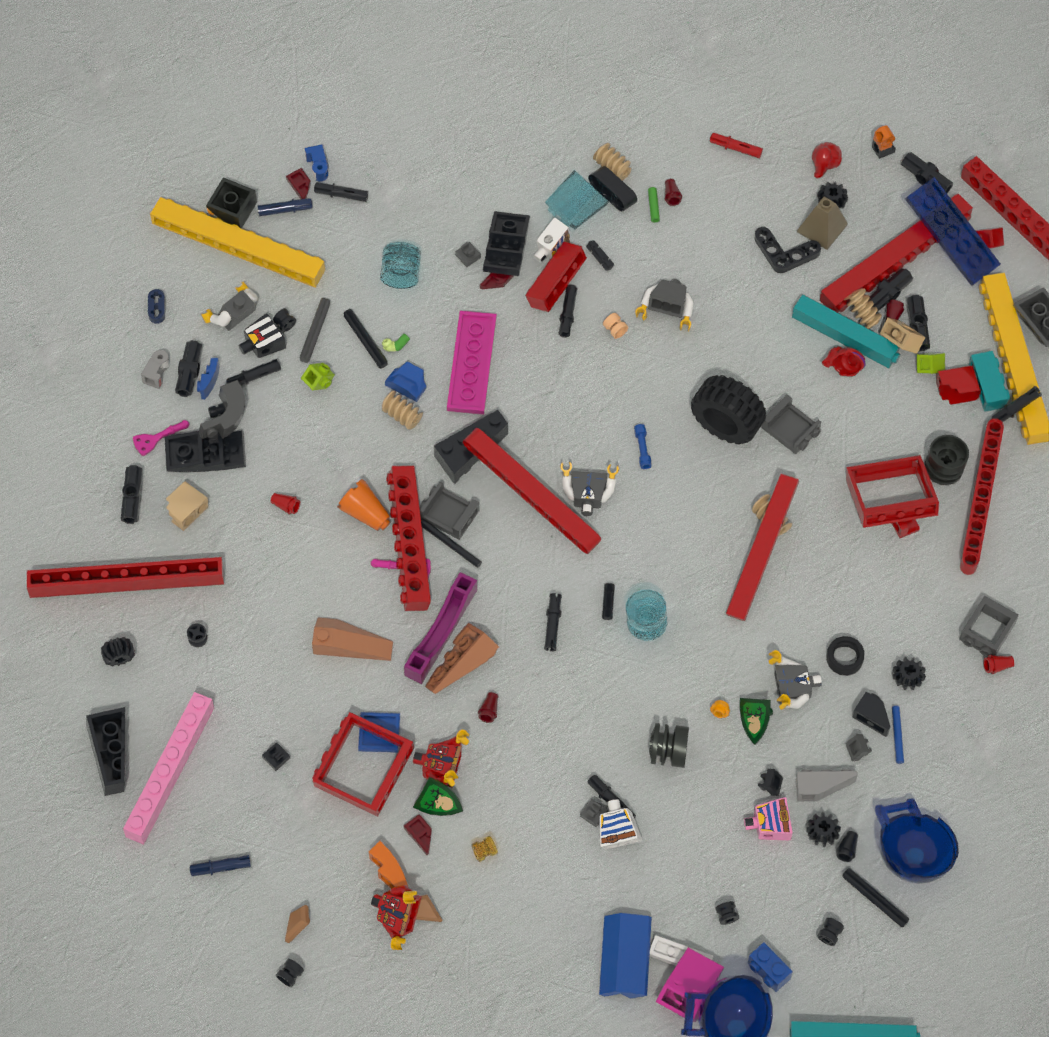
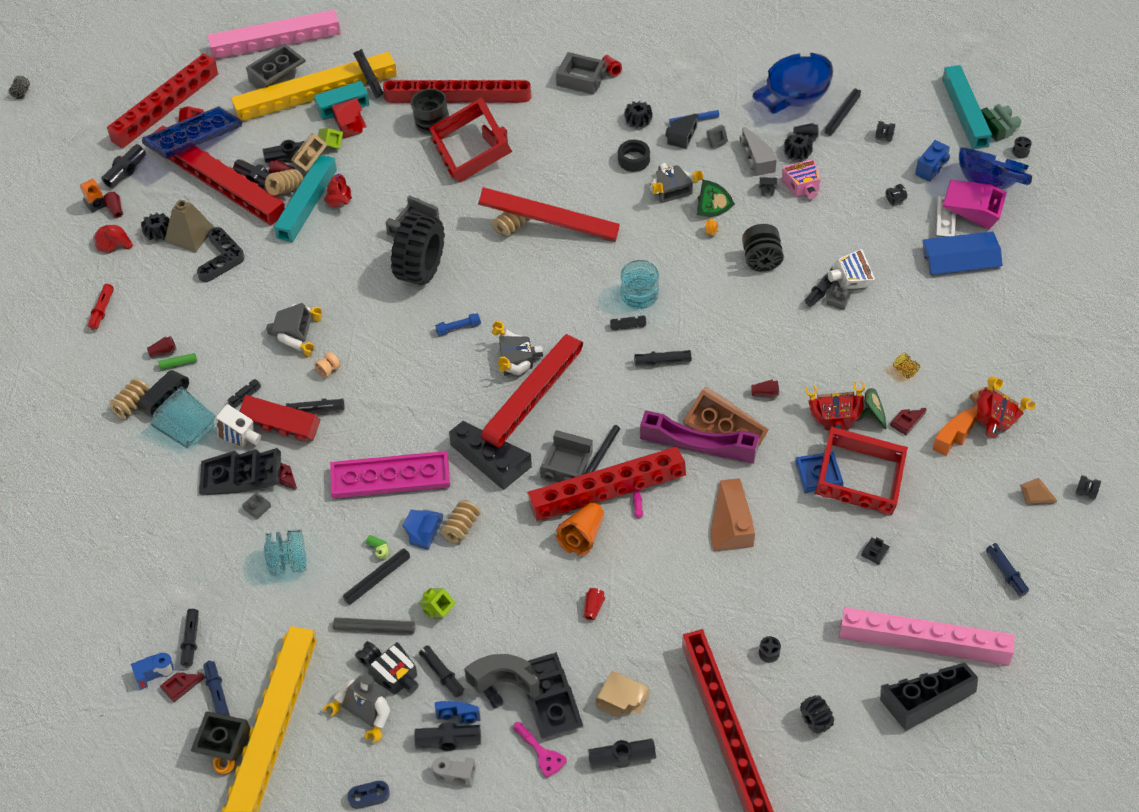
camera: 100 degrees left, 10 degrees down
(873, 162) = (113, 203): none -> dark red cone

